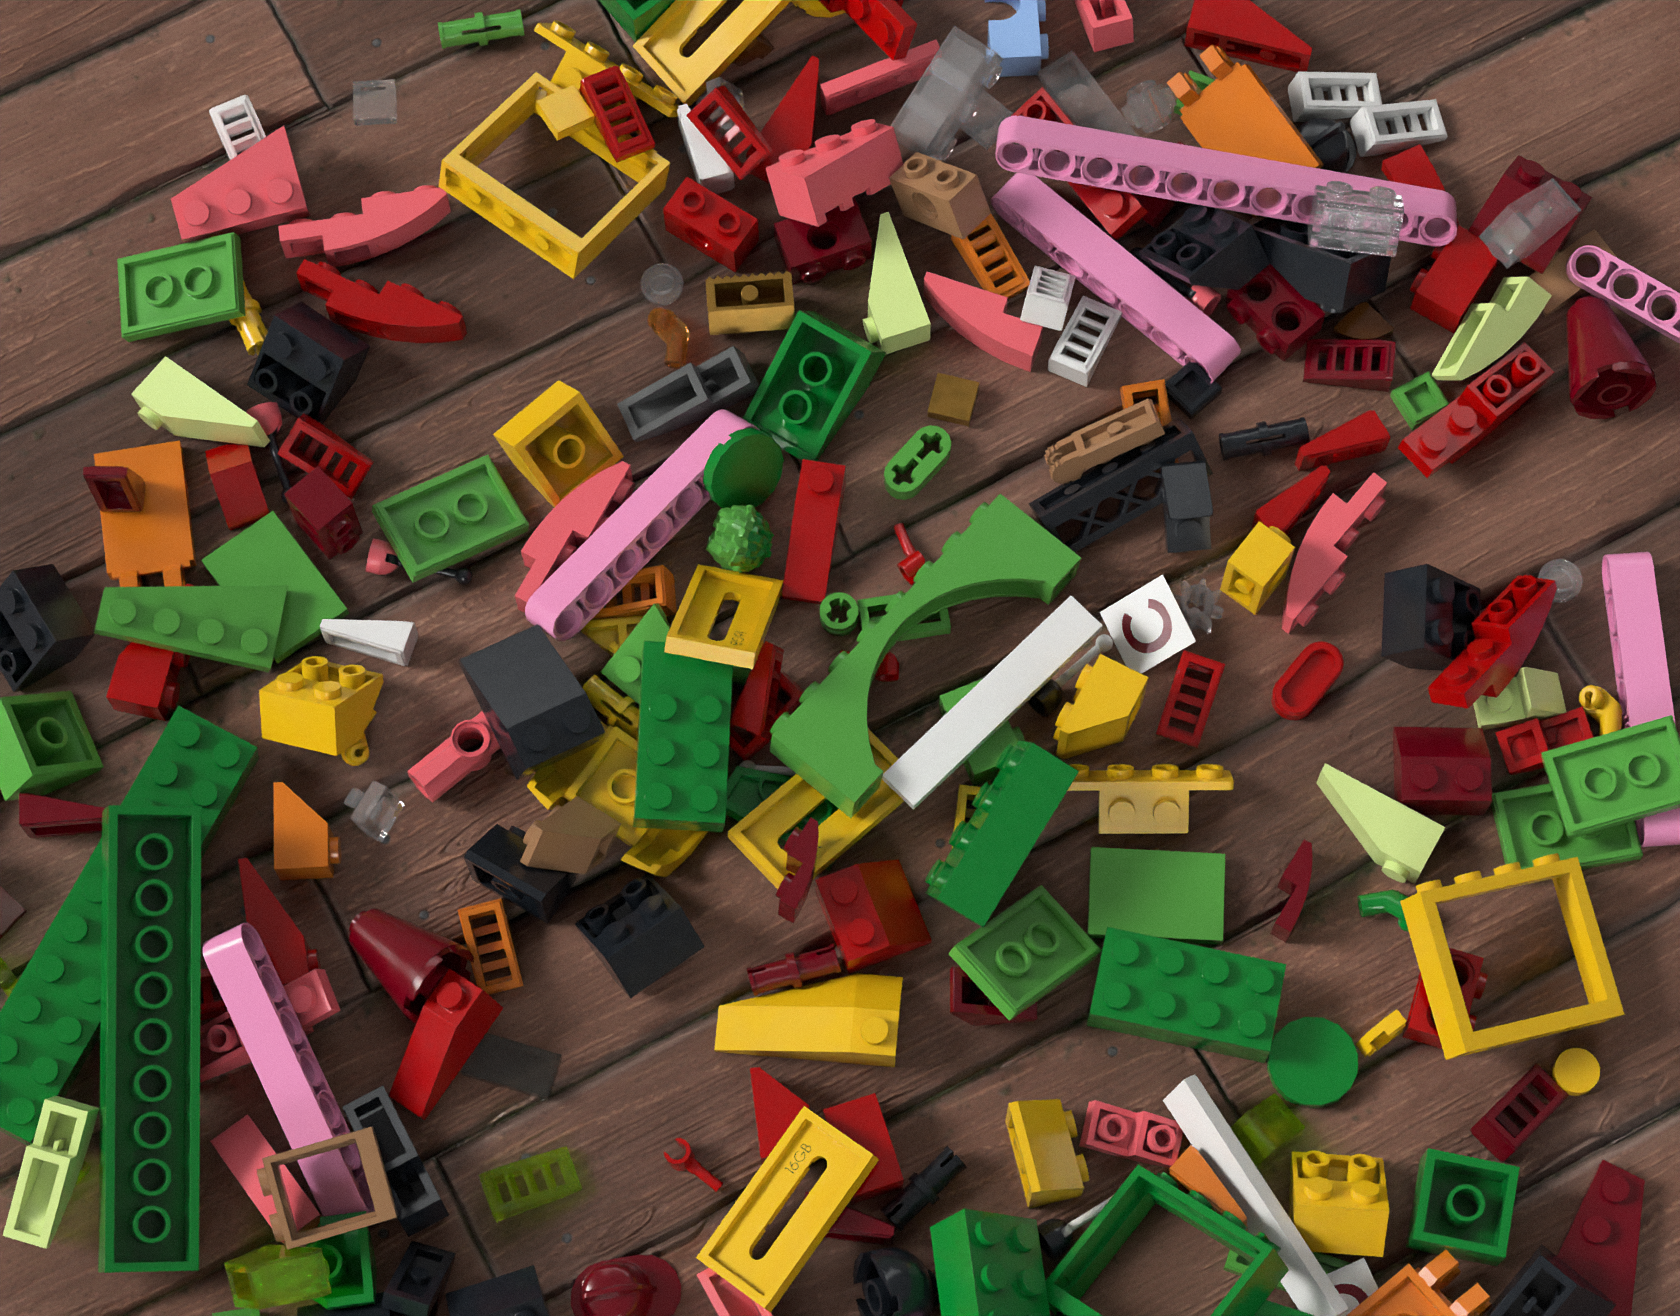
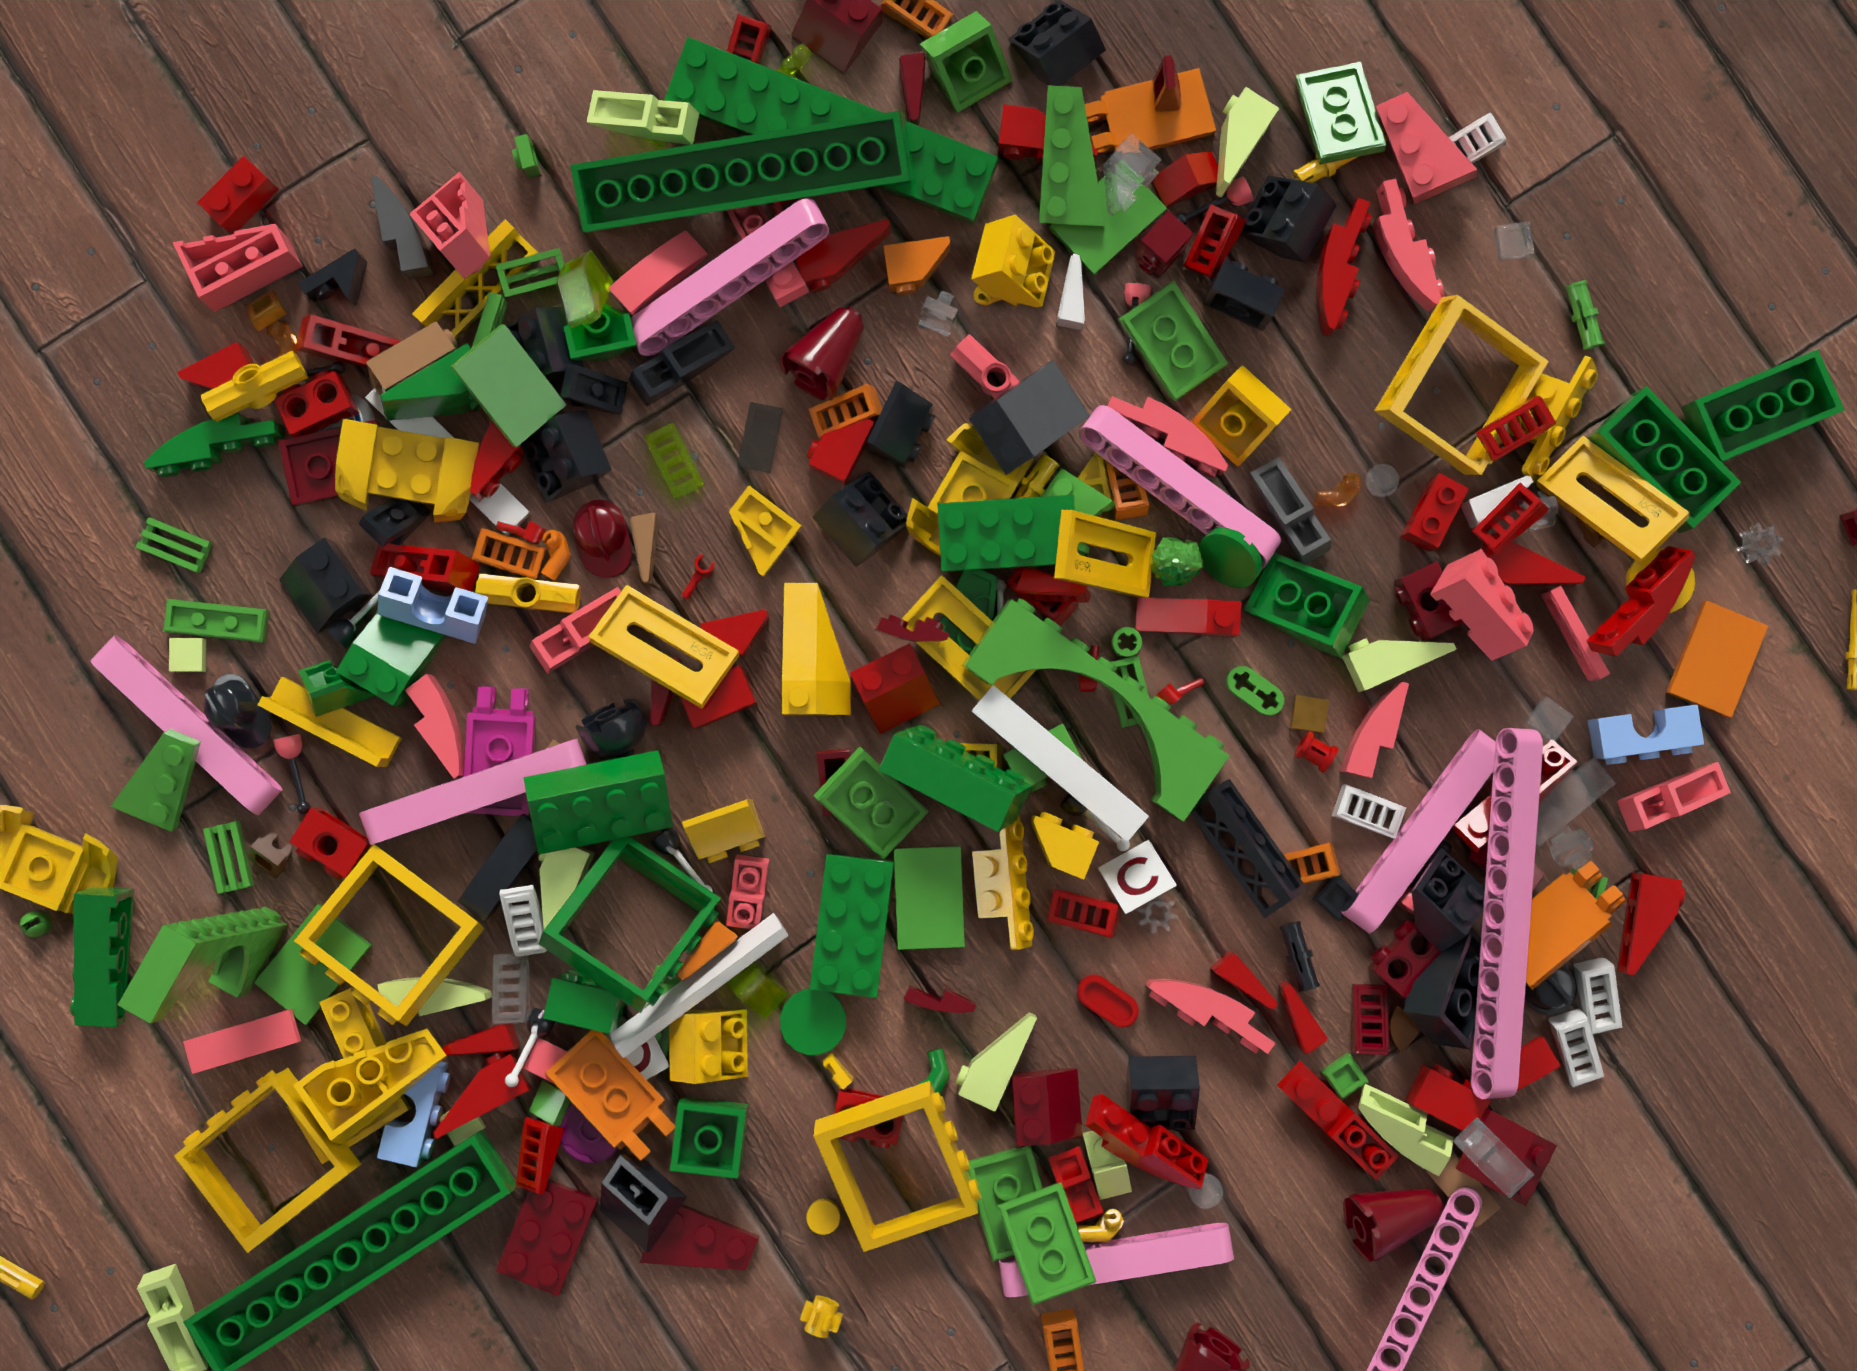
camera: 85 degrees right, 15 degrees up
(220, 550) = (1125, 171): none -> clear slope
(273, 1184) = (652, 348): medium nougat window -> none
(403, 422) = (1244, 295): none -> black slope
(442, 1042) = (769, 385): red slope -> none
(545, 956) = (840, 451): none -> red slope
(565, 112) = (1513, 387): yellow tile -> none
(570, 838) = (924, 460): medium nougat slope -> none
(632, 1229) = (645, 539): none -> medium nougat slope
(637, 1069) = (763, 528): none -> yellow wing
(750, 303) = (1369, 549): pearl gold brick -> none
(793, 970) = (847, 634): dark red pin -> none
(923, 1188) = (693, 743): black pin -> none
(940, 195) = (1474, 688): medium nougat brick -> none
(947, 95) = (1560, 686): clear brick -> none
(1002, 250) = (1455, 718): orange slope -> none
(1003, 393) = (1316, 751): none -> red bush
(1047, 298) = (1393, 778): white slope -> none
(1103, 441) = (1282, 832): medium nougat hinge -> none
(1186, 506) = (1235, 899): black slope -> none
(1257, 567) = (1189, 958): yellow brick -> none
(1355, 219) = (1480, 1018): clear brick -> none
(1499, 1132) = (766, 1160): dark red slope -> none

